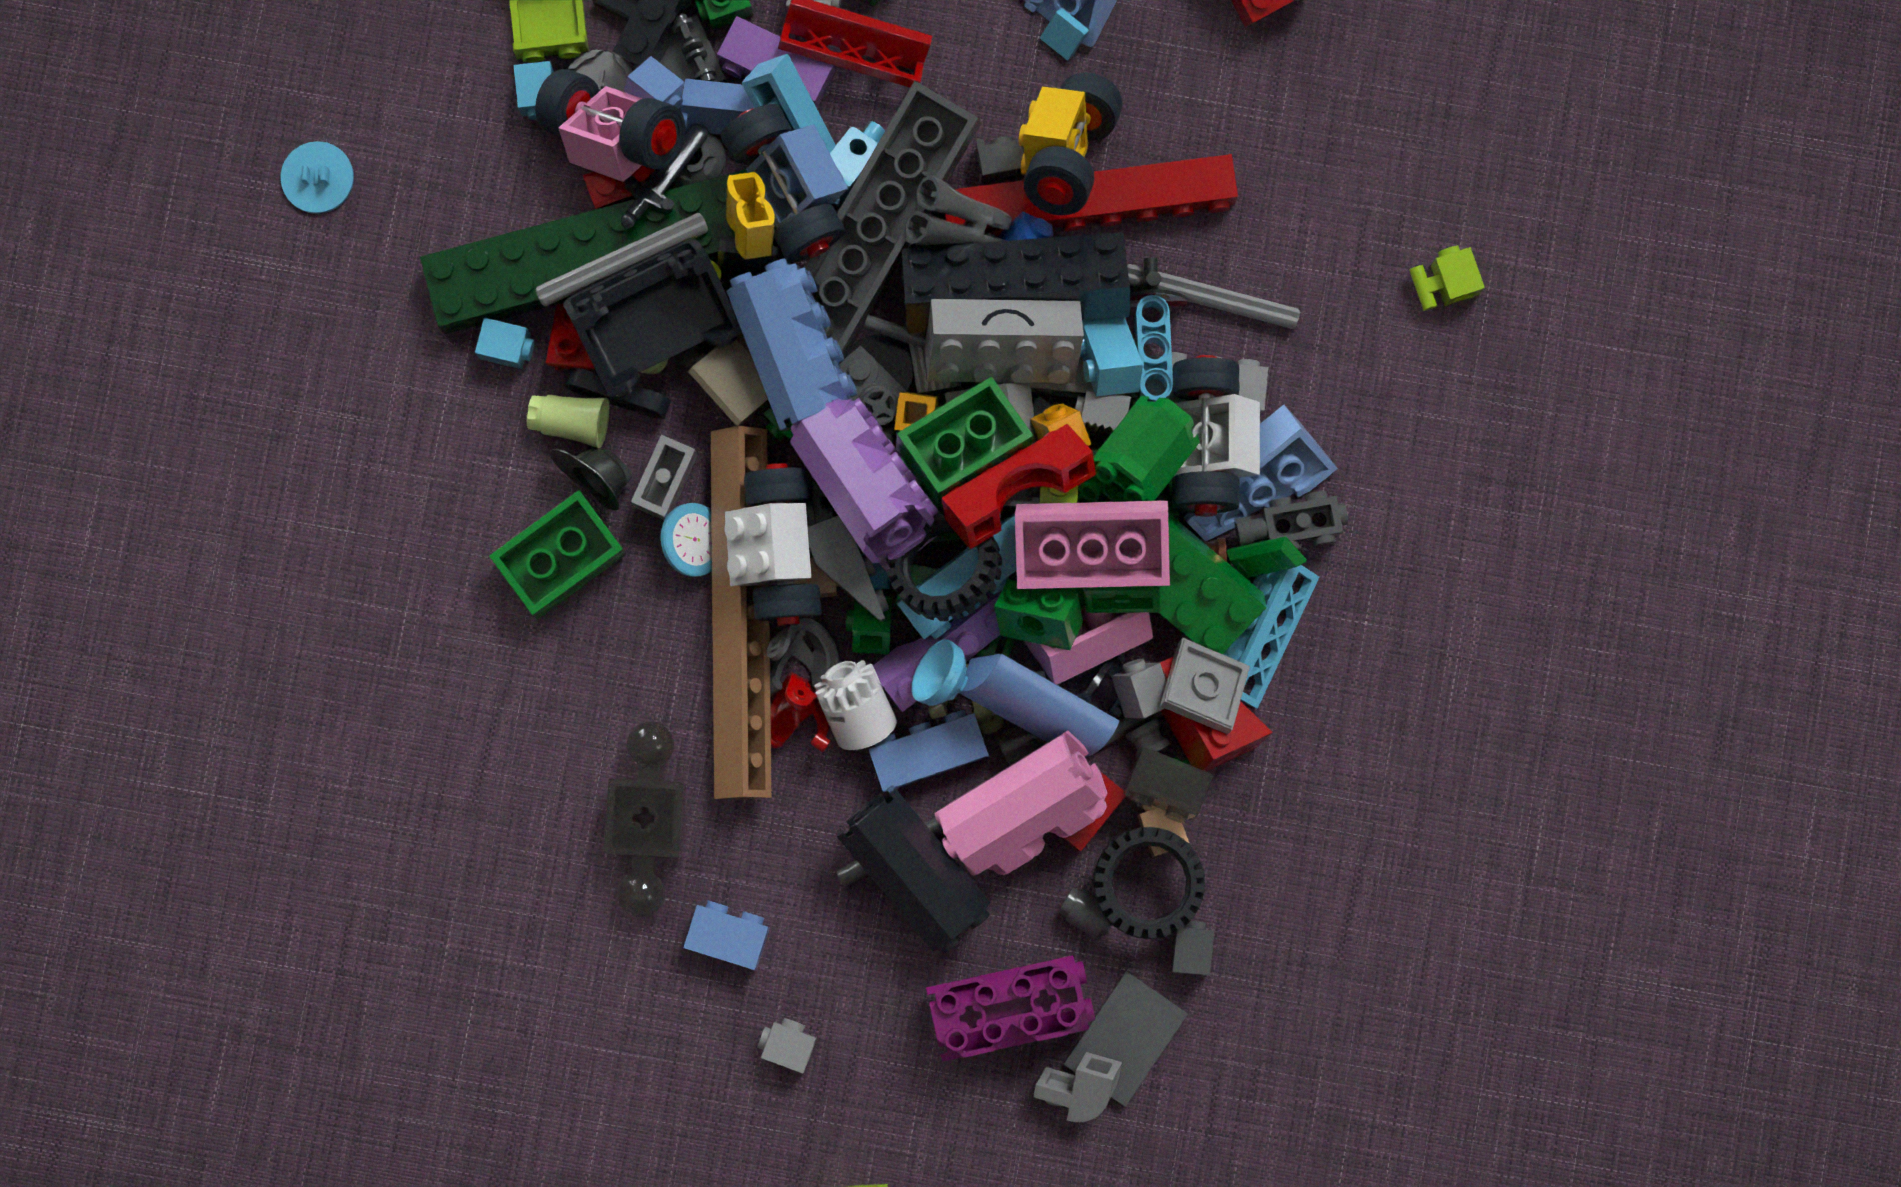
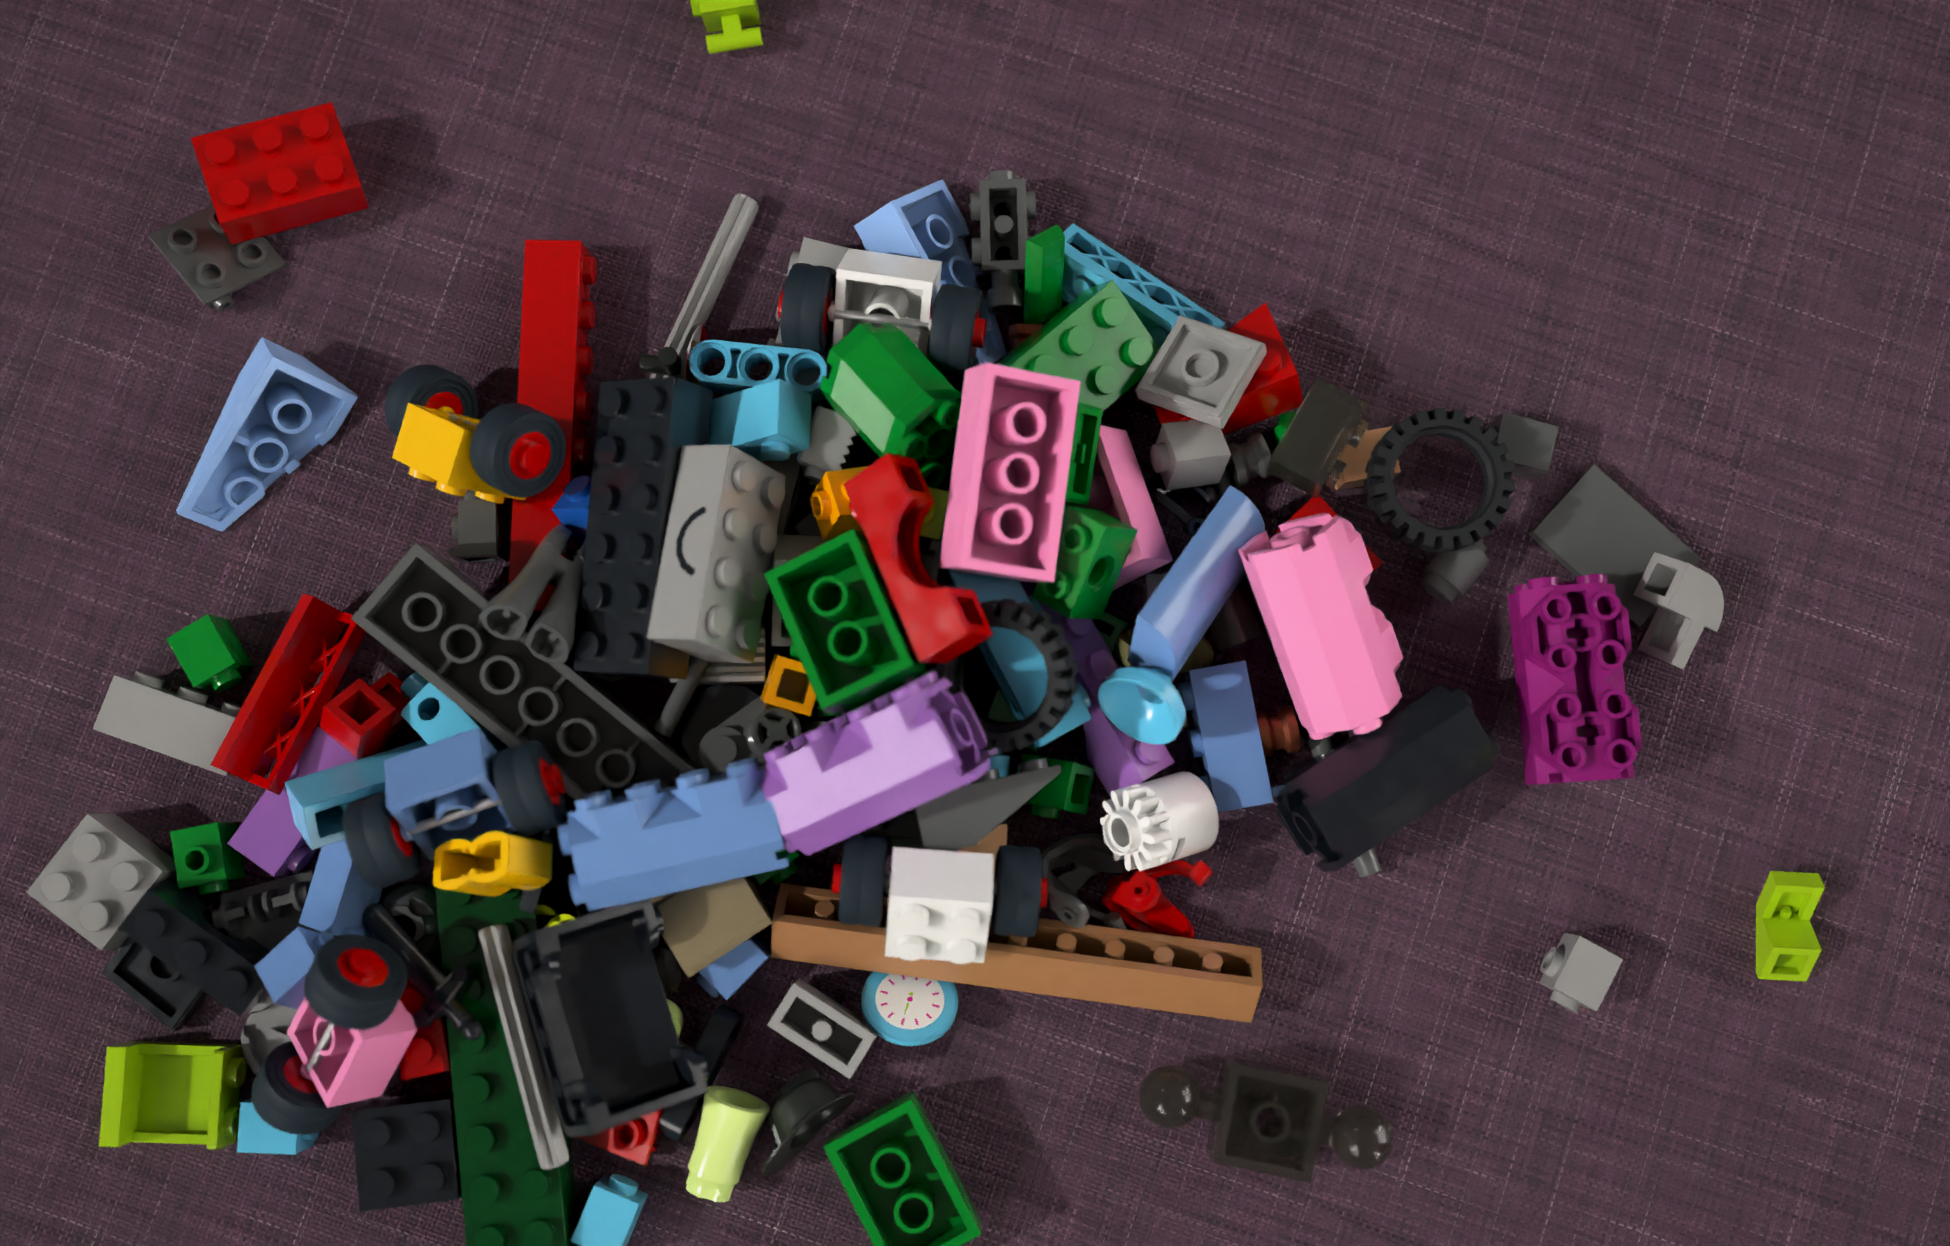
camera: 75 degrees left, 0 degrees up
(530, 188) = (406, 1152): none -> black brick
(698, 405) = (734, 968): none -> medium blue brick
(727, 936) = (1428, 1031): medium blue piece -> none
(846, 101) = (365, 715): none -> red brick
(938, 789) = (1279, 730): none -> copper wheel
(1064, 34) = (333, 427): medium azure tile -> none

